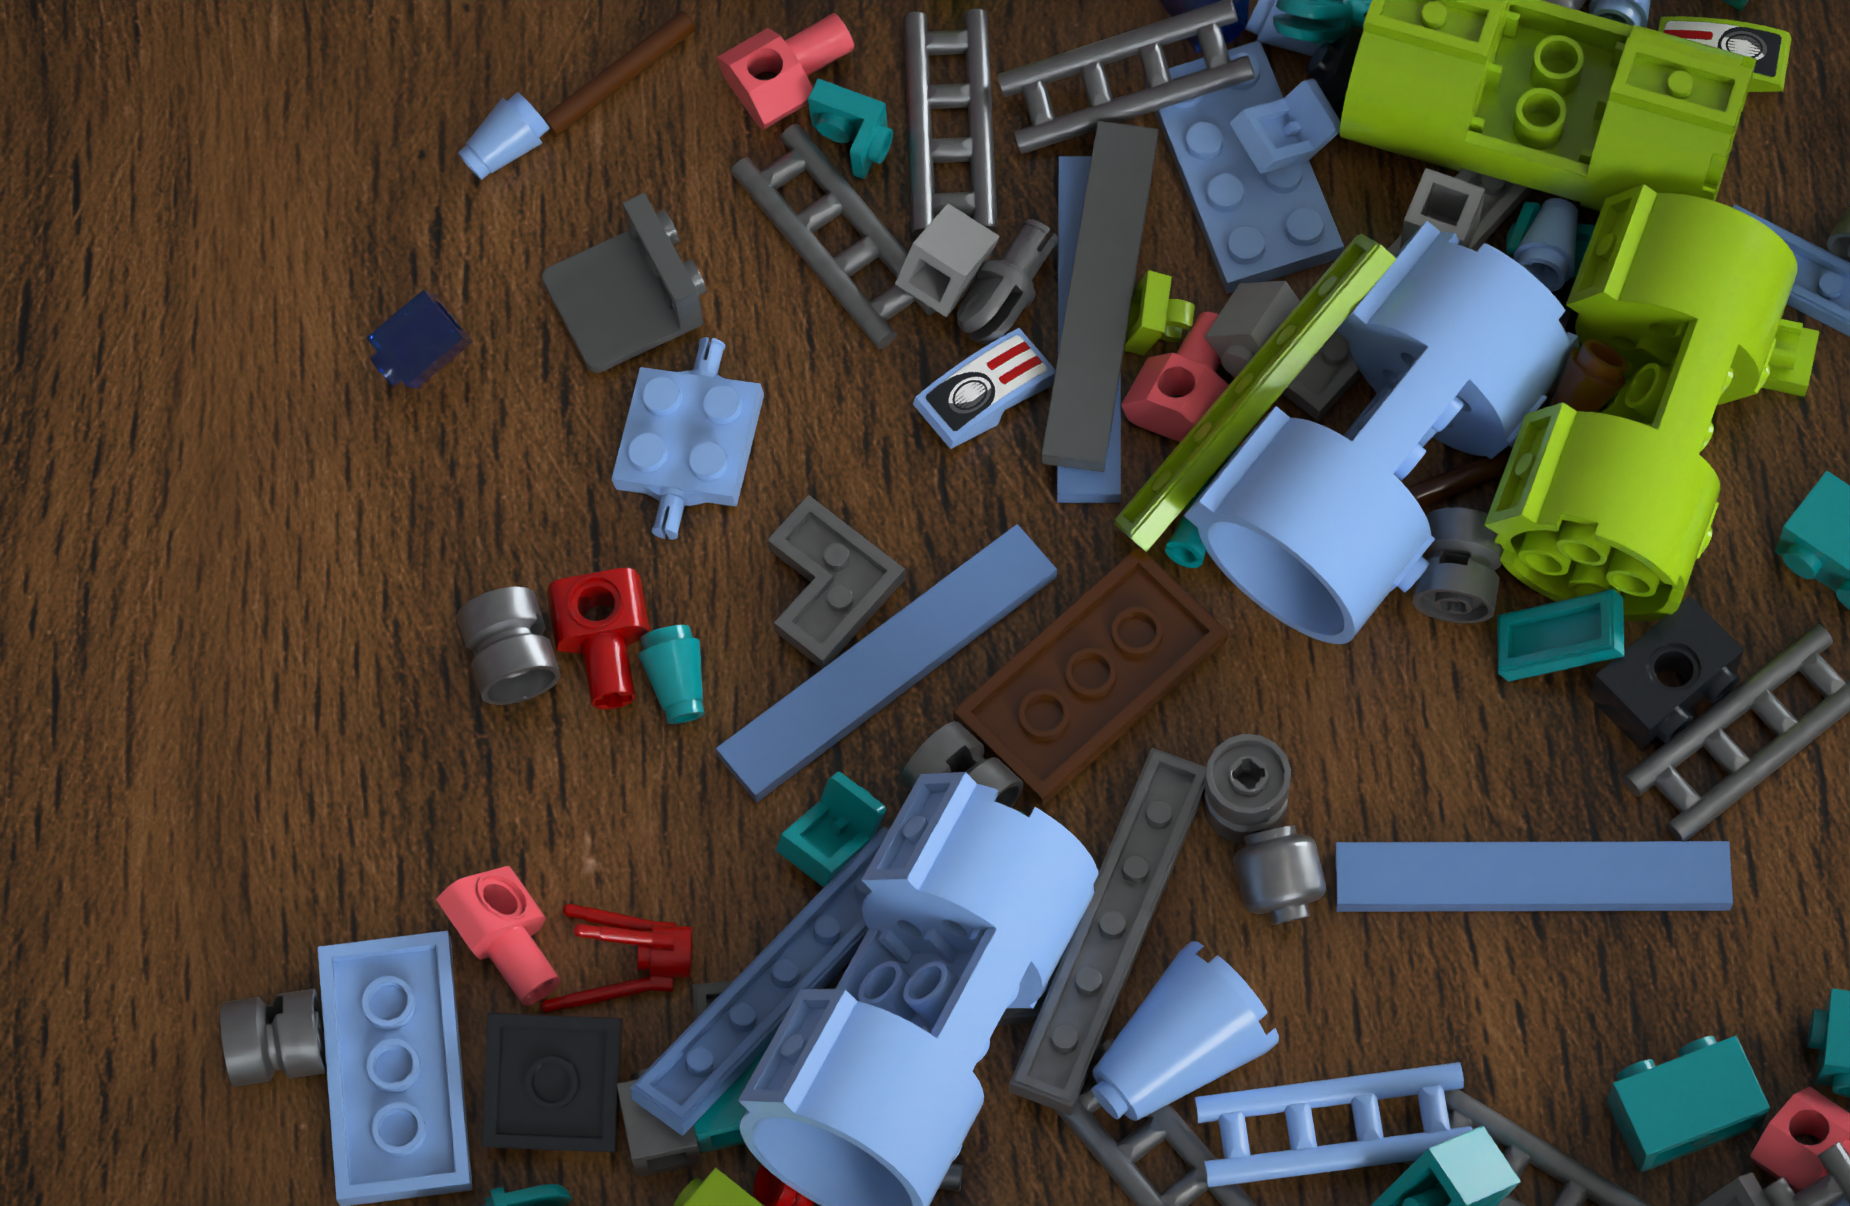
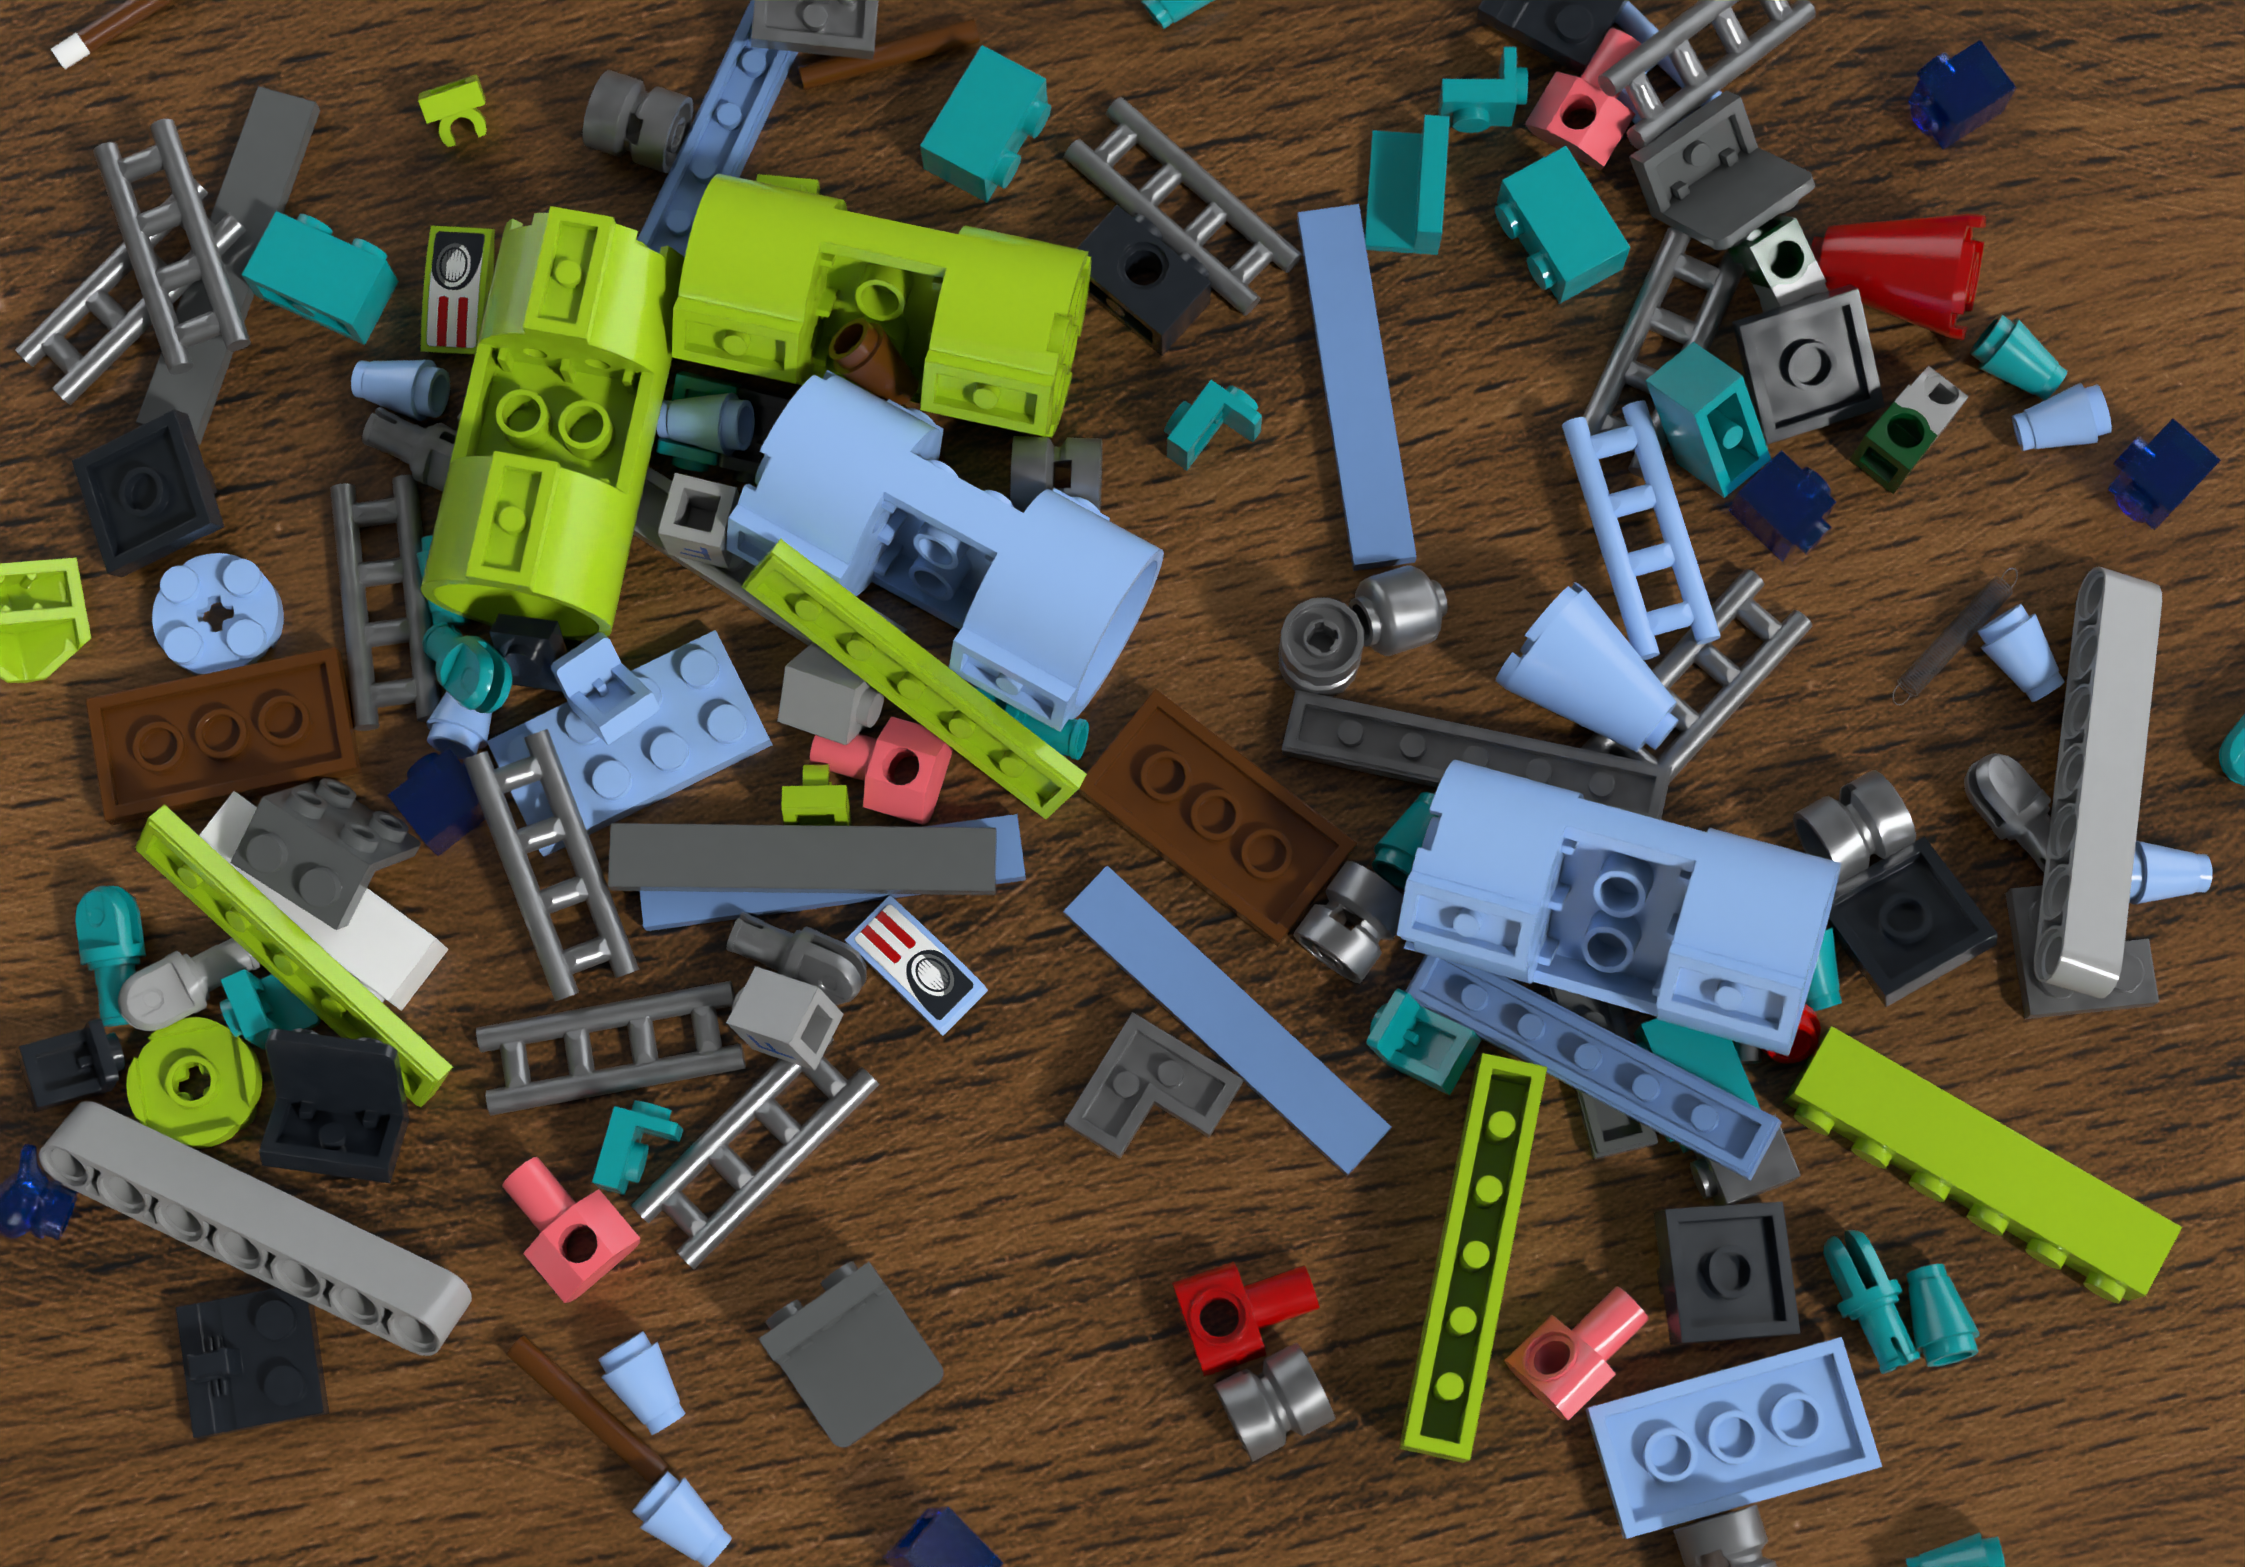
camera: 100 degrees left, 10 degrees up
(609, 840) = (1473, 1258): none -> lime brick
(633, 116) = (643, 1382): none -> light blue cone
(661, 949) = (1571, 1191): red plant -> none
(675, 671) = (1271, 1229): teal cone -> none
(688, 437) = (1006, 1261): light blue plate -> none
(1505, 711) = (1195, 424): none -> teal bracket
(1560, 635) = (1118, 376): teal tile -> none
(1747, 960) = (1407, 189): none -> teal panel

